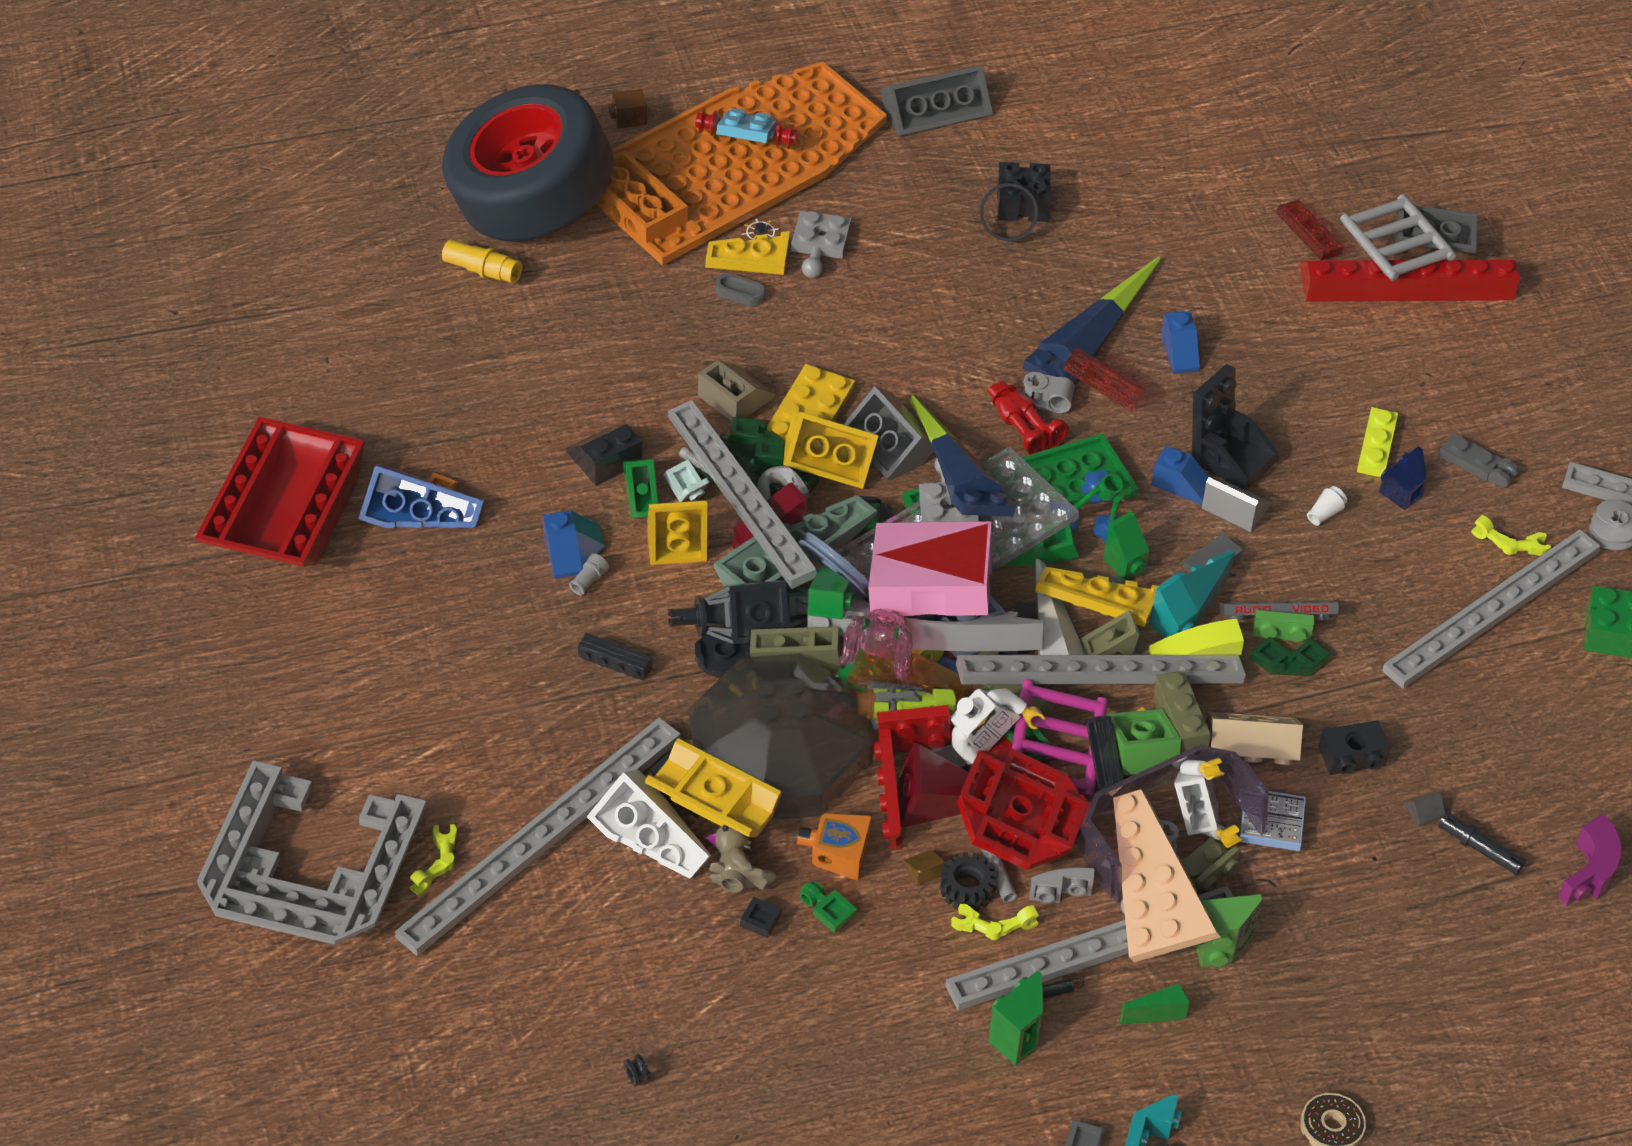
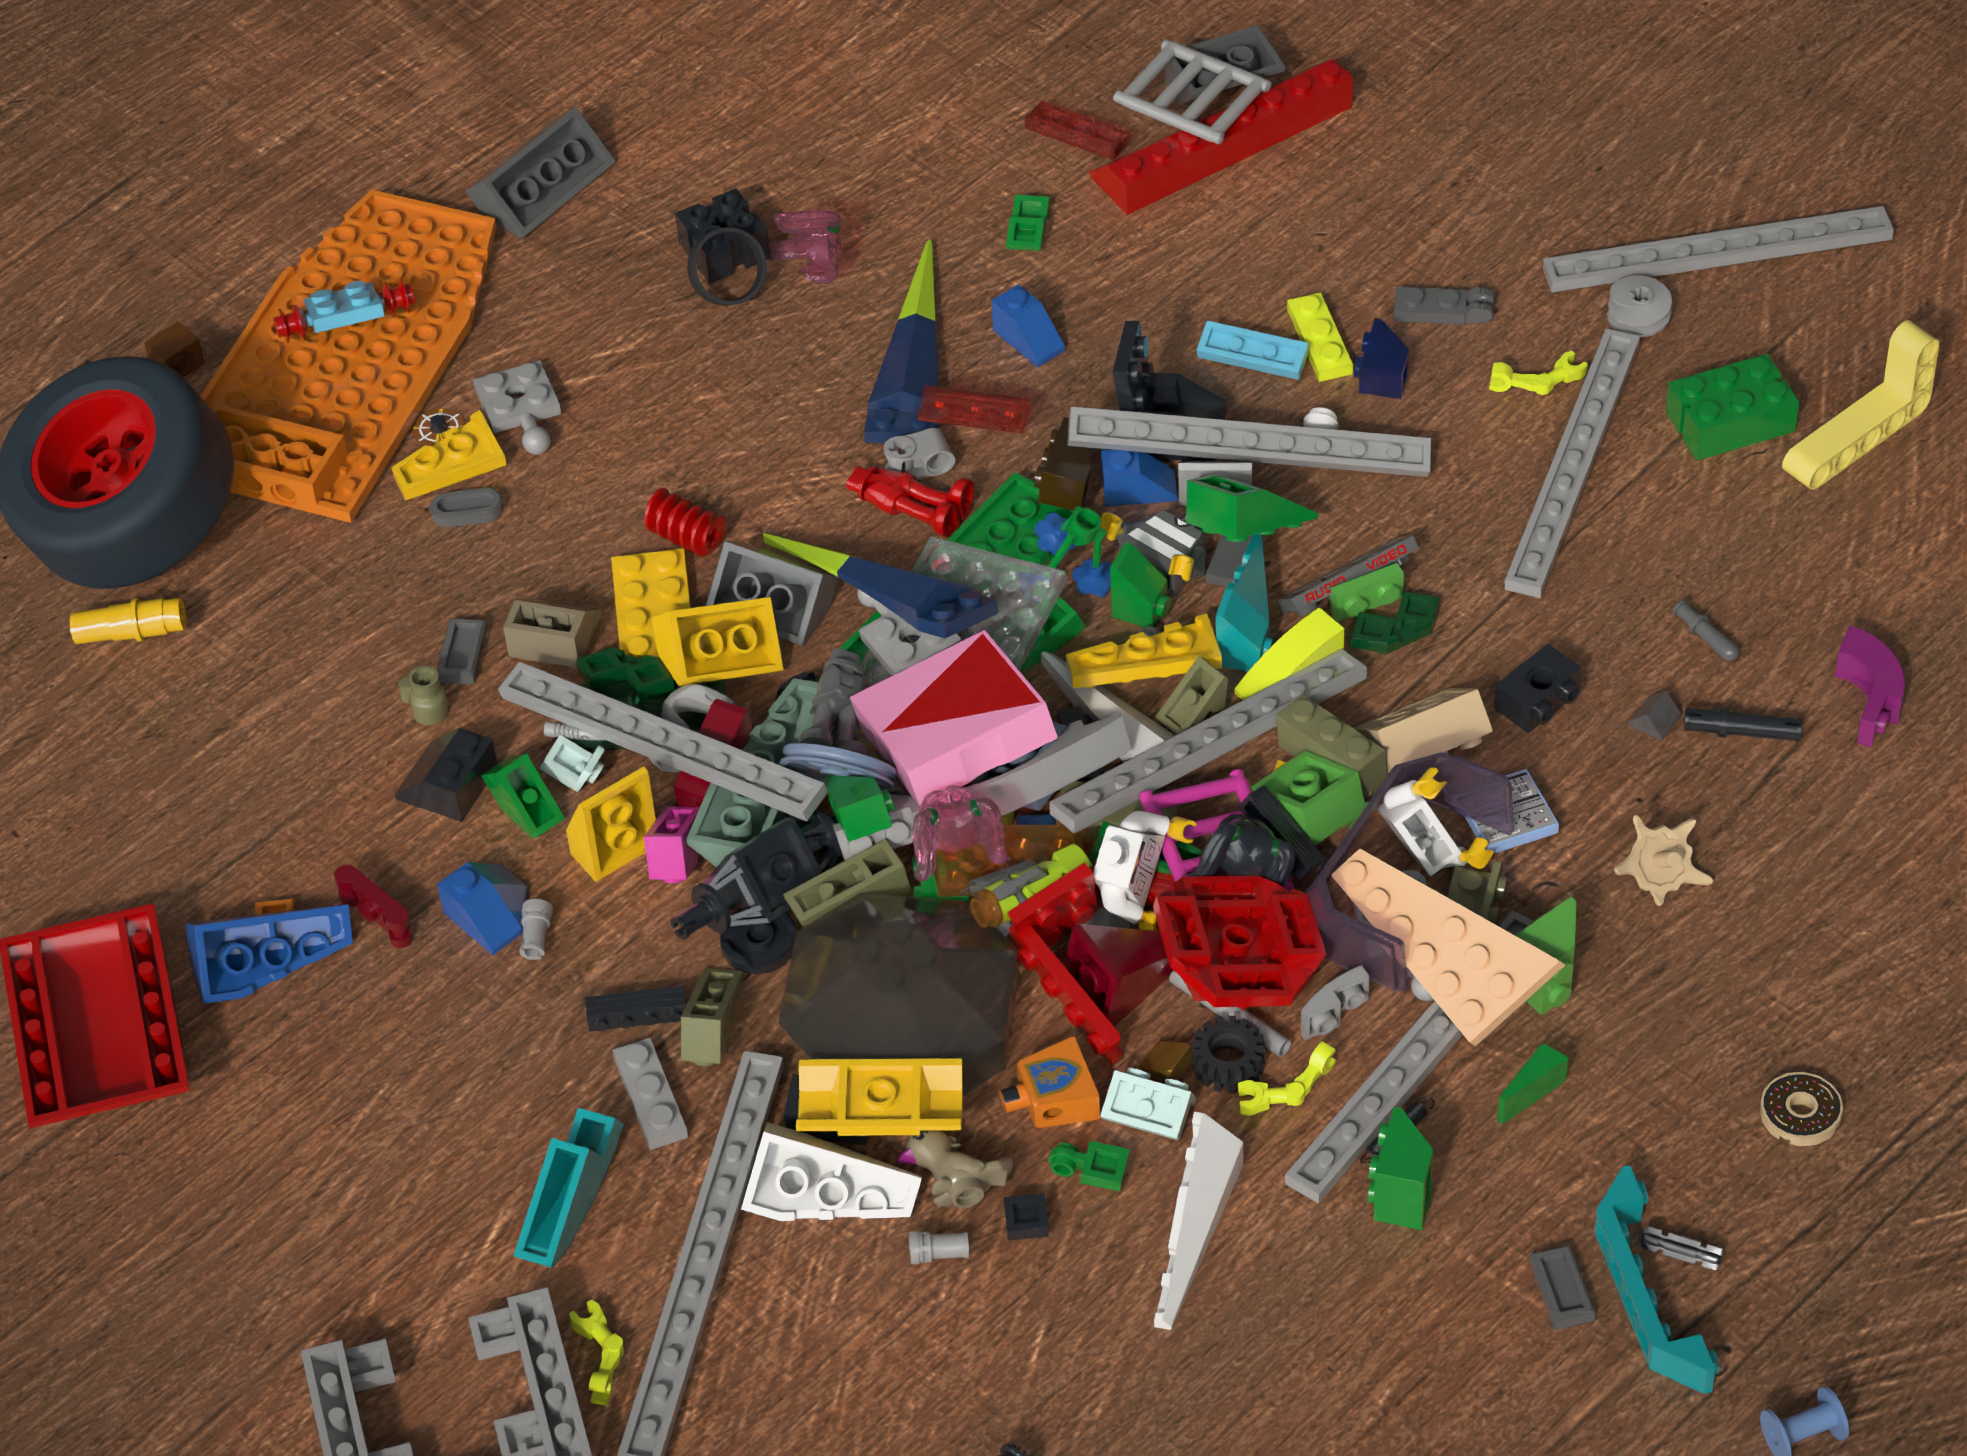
camera: 25 degrees left, 0 degrees up
(488, 745) = (567, 1187): none -> teal slope
(500, 509) = (374, 904): none -> dark red plate
(585, 715) = (650, 1094): none -> light grey plate
(626, 395) = (425, 695): none -> olive piece
(654, 684) = (710, 1016): none -> olive slope
(671, 378) = (462, 651): none -> dark grey tile
(684, 902) = (927, 1246): none -> light grey pin
(700, 561) = (667, 847): none -> dark pink slope
(865, 363) = (684, 523): none -> red piece
(874, 969) = (1206, 1186): none -> white wedge
(883, 509) = (836, 685): none -> dark grey piece
(890, 887) = (1147, 1104): none -> light aqua bracket
(1068, 751) = (1246, 849): none -> black hair
(1076, 222) = (814, 239): none -> clear pink hair
(1132, 448) = (1063, 472): none -> dark brown slope
(1165, 527) = (1165, 542): none -> torso
(1229, 527) = (1239, 508): none -> green slope
(1233, 276) = (1028, 223): none -> green slope
(1271, 487) = (1249, 441): none -> light grey plate
(1323, 429) = (1253, 350): none -> medium azure plate
(1354, 904) = (1662, 859): none -> tan piece
(1502, 762) = (1699, 625): none -> dark grey piece

